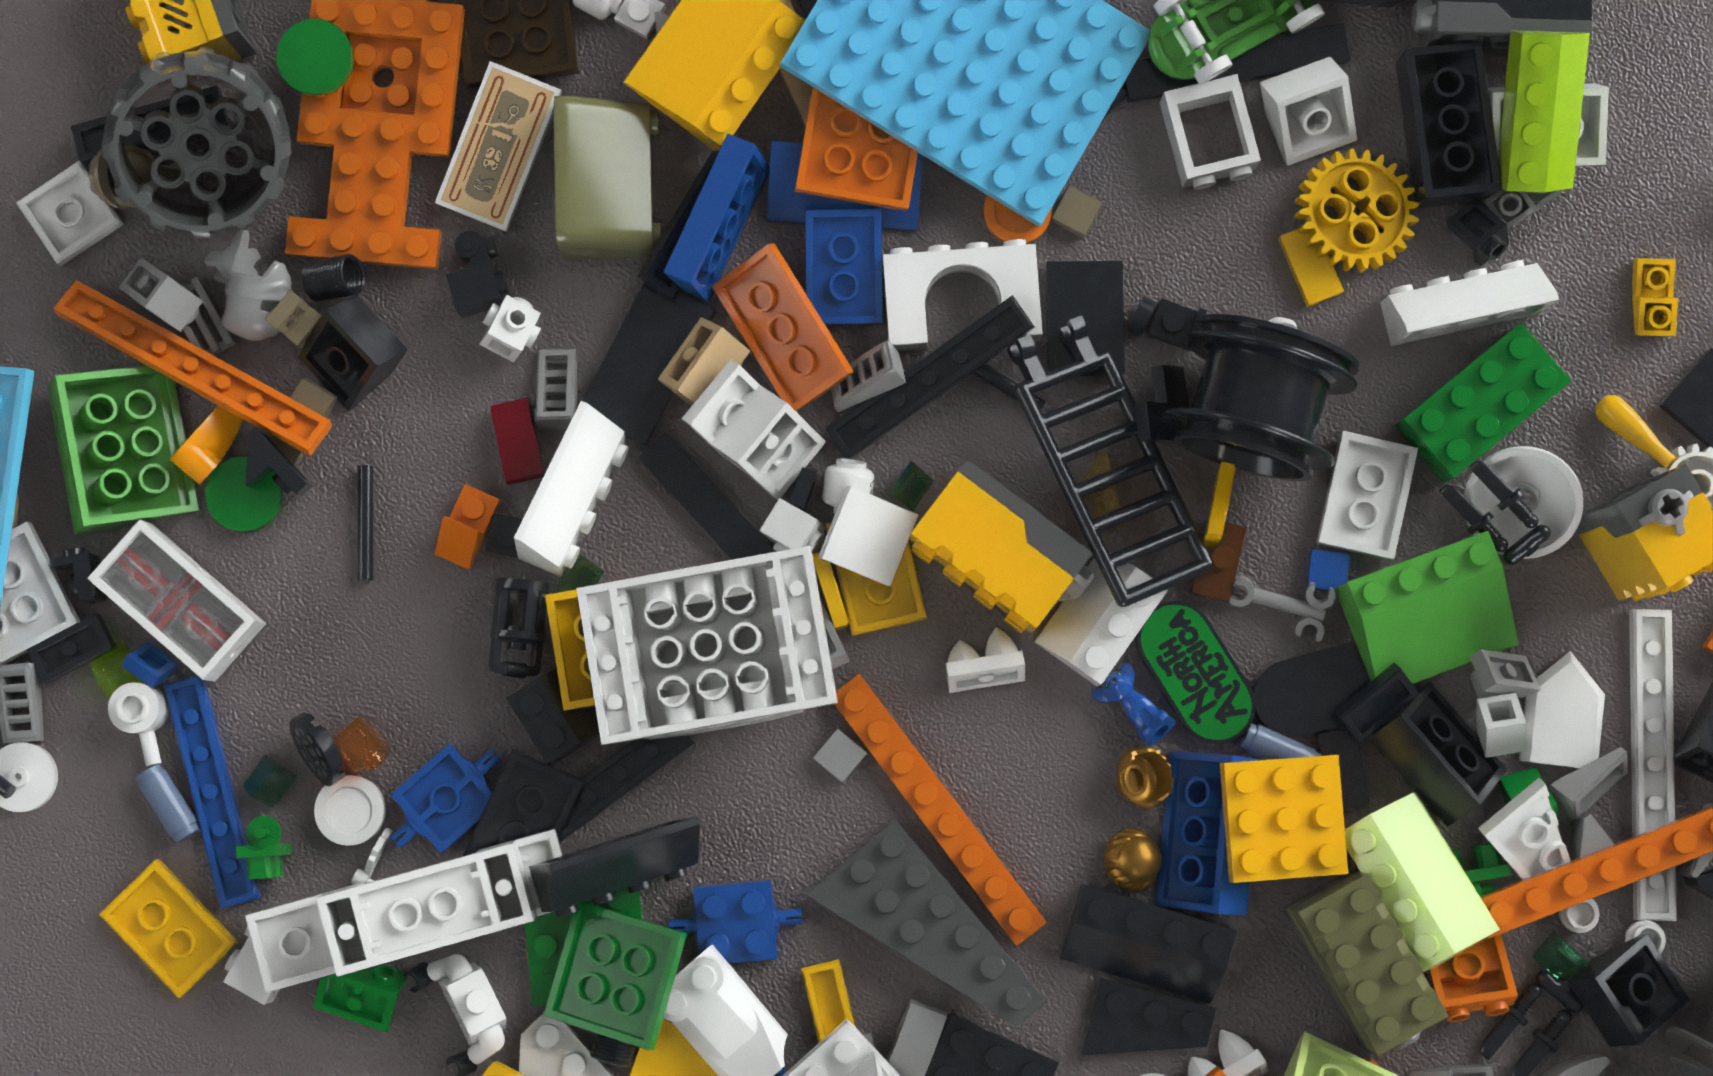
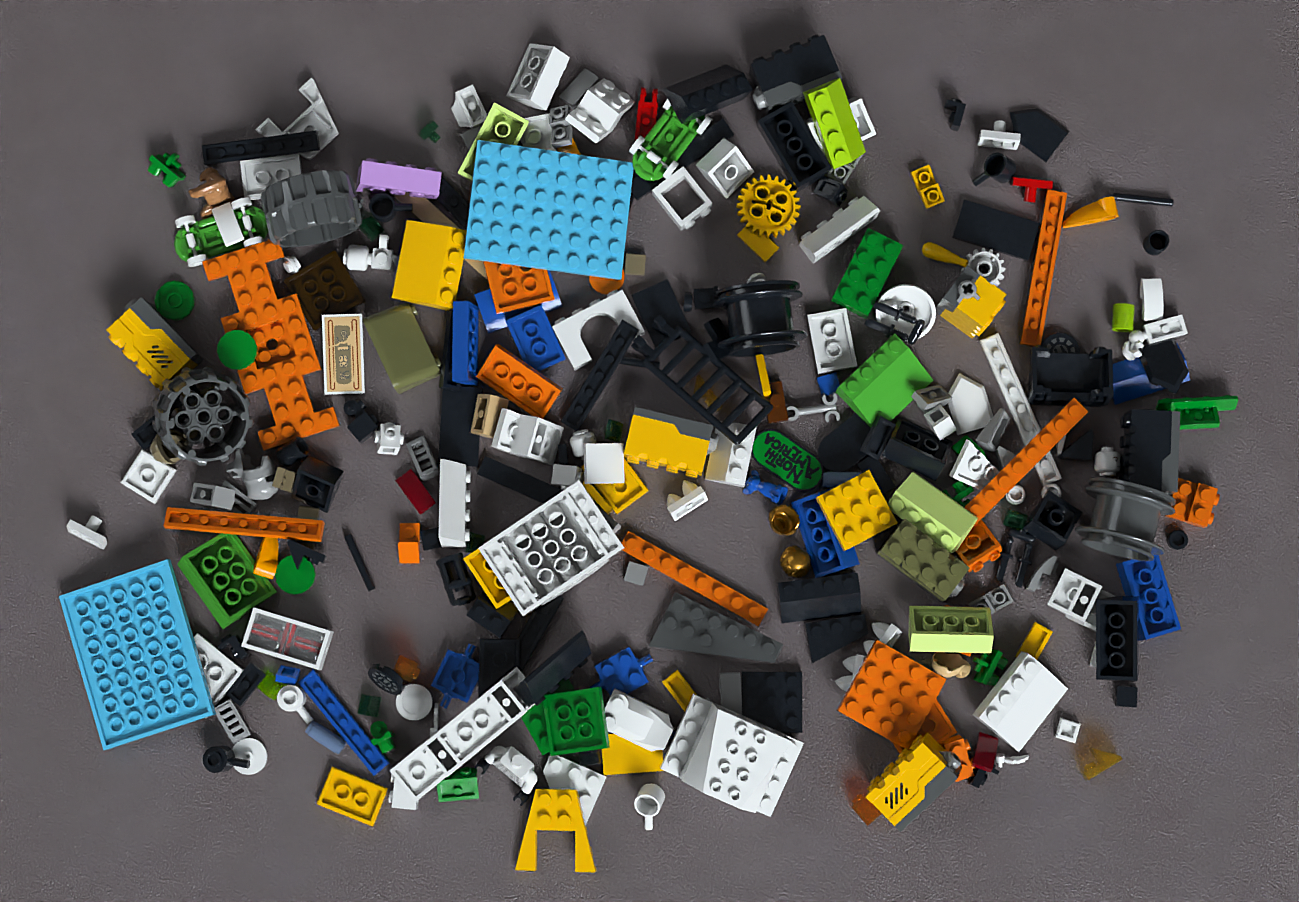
camera: 25 degrees left, 0 degrees up
(889, 377) = (577, 387): light grey slope -> none

